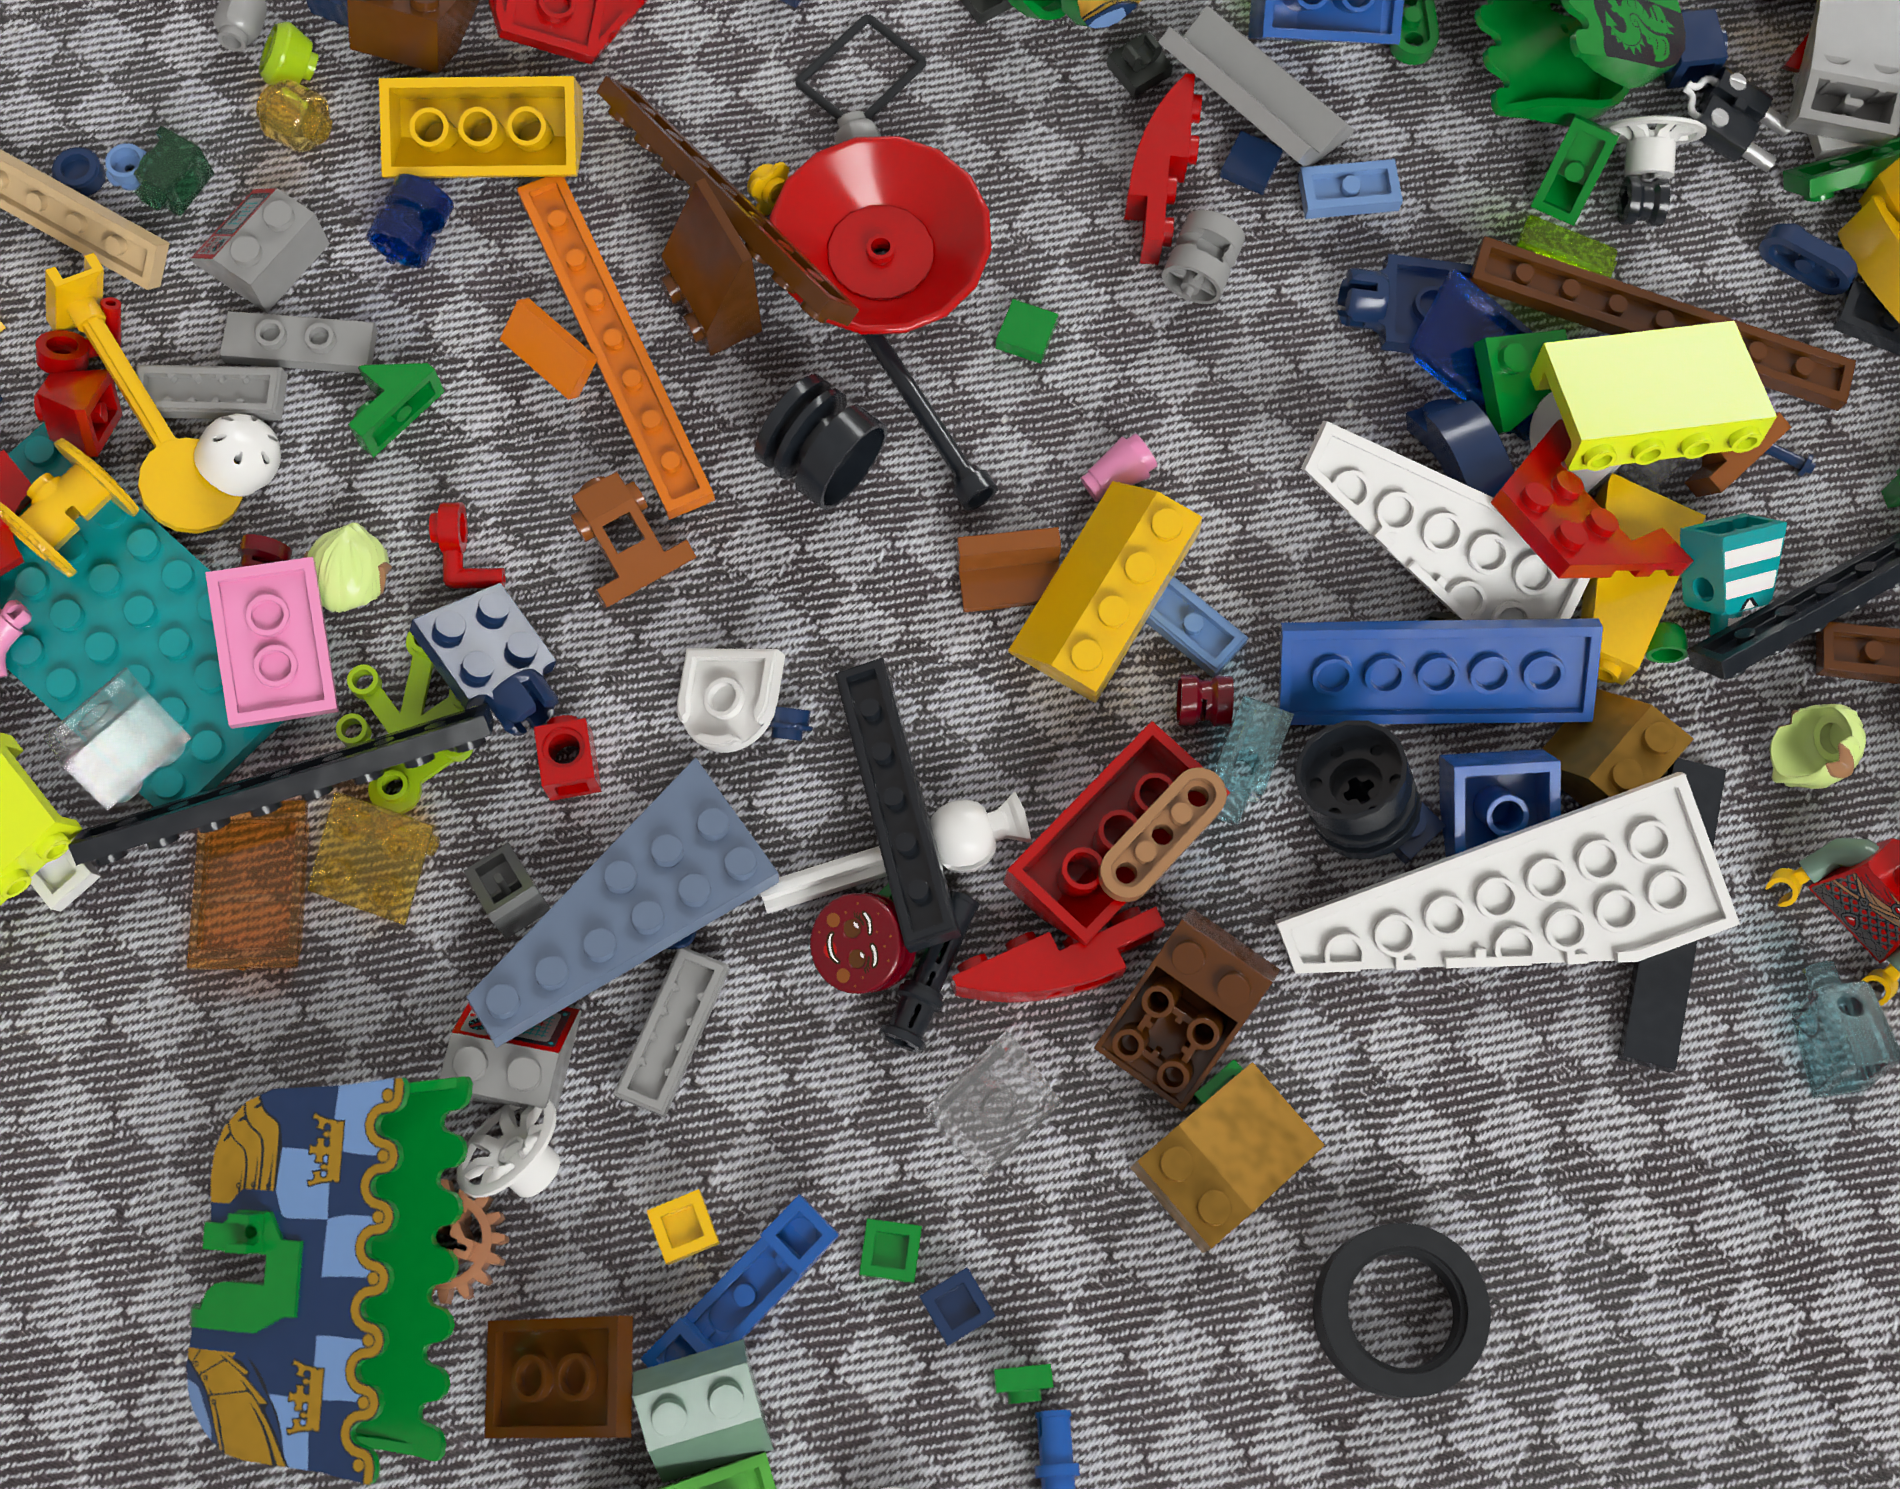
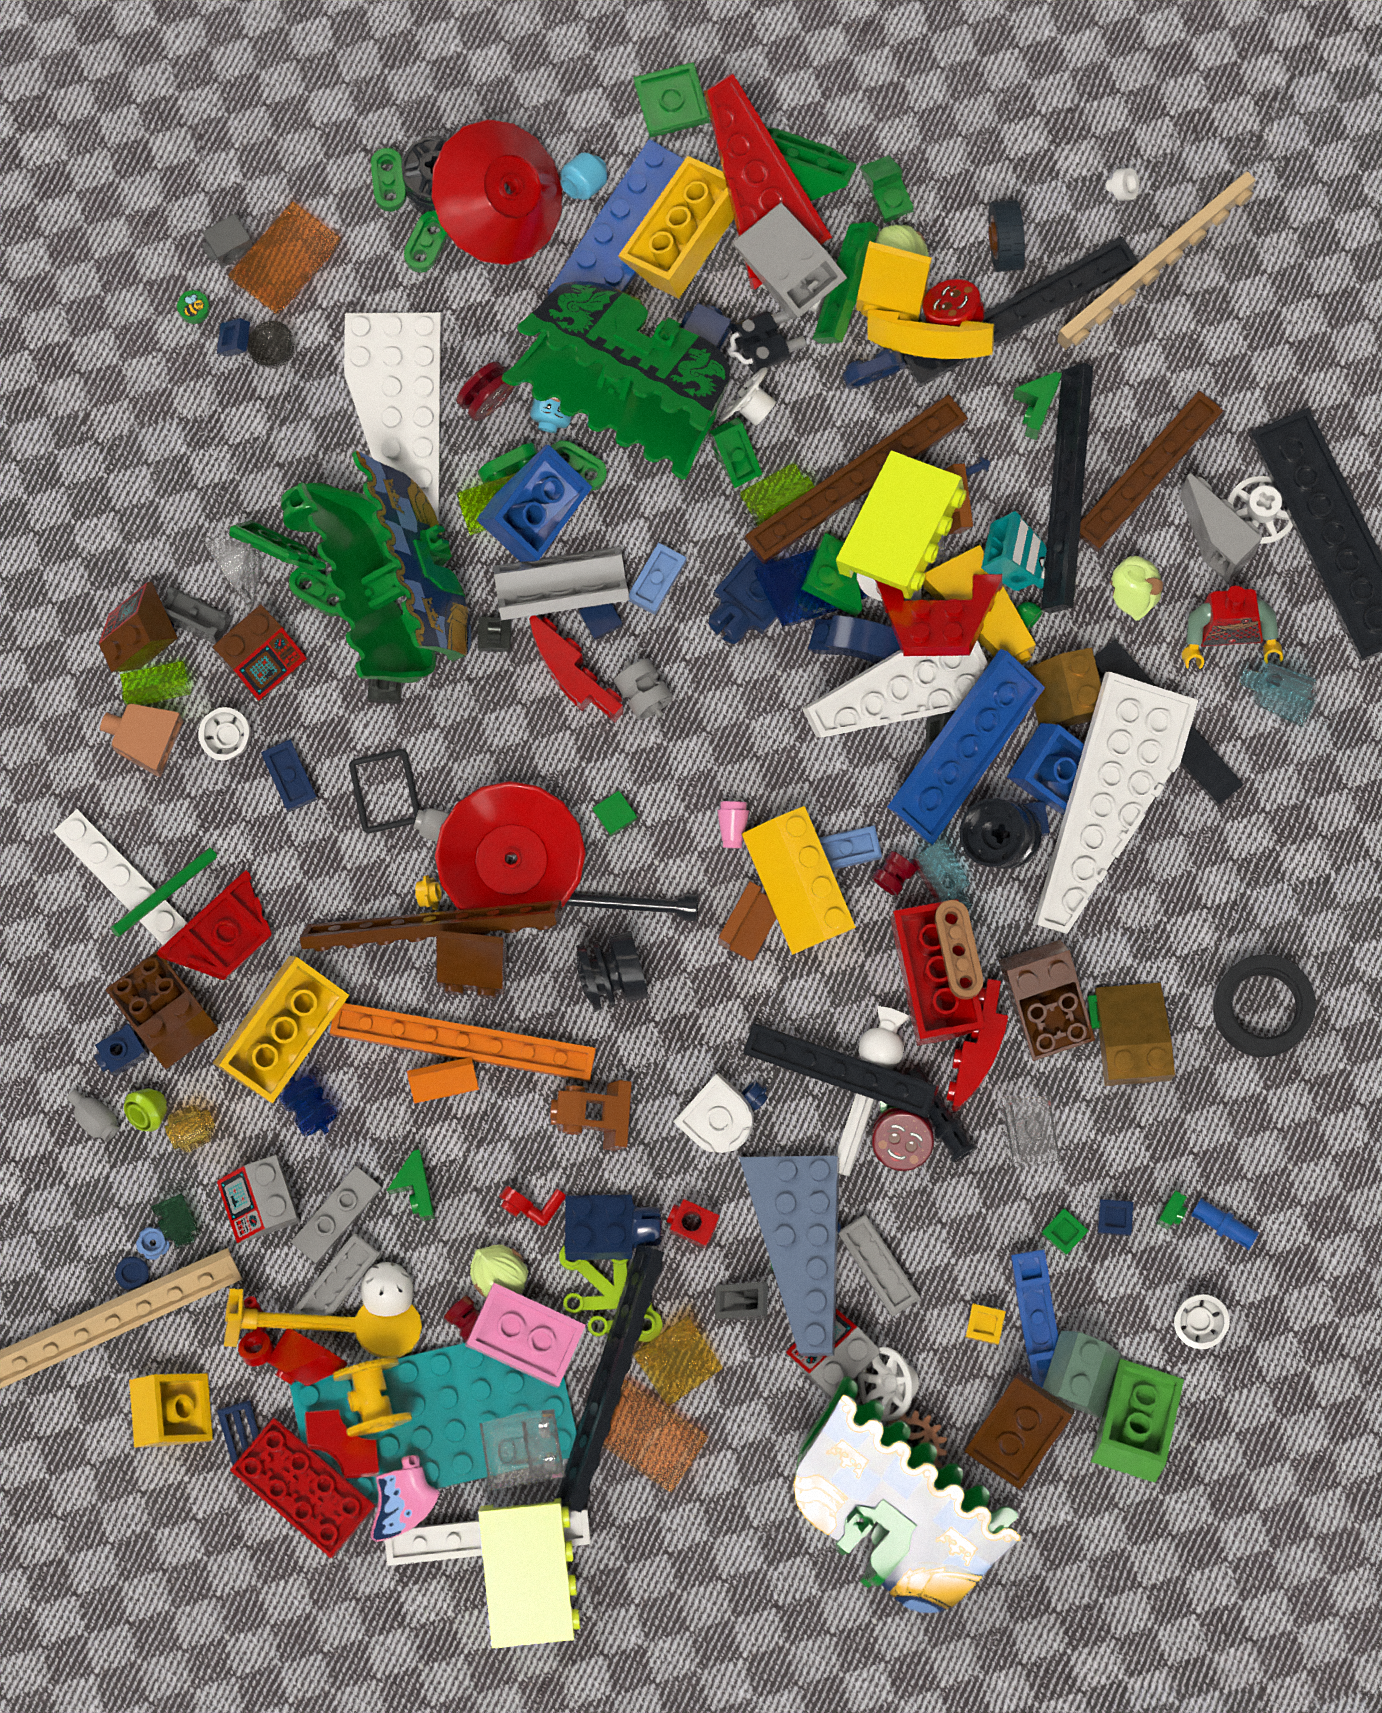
camera: 50 degrees left, 5 degrees up
(1643, 201) = (778, 429): black wheel -> none

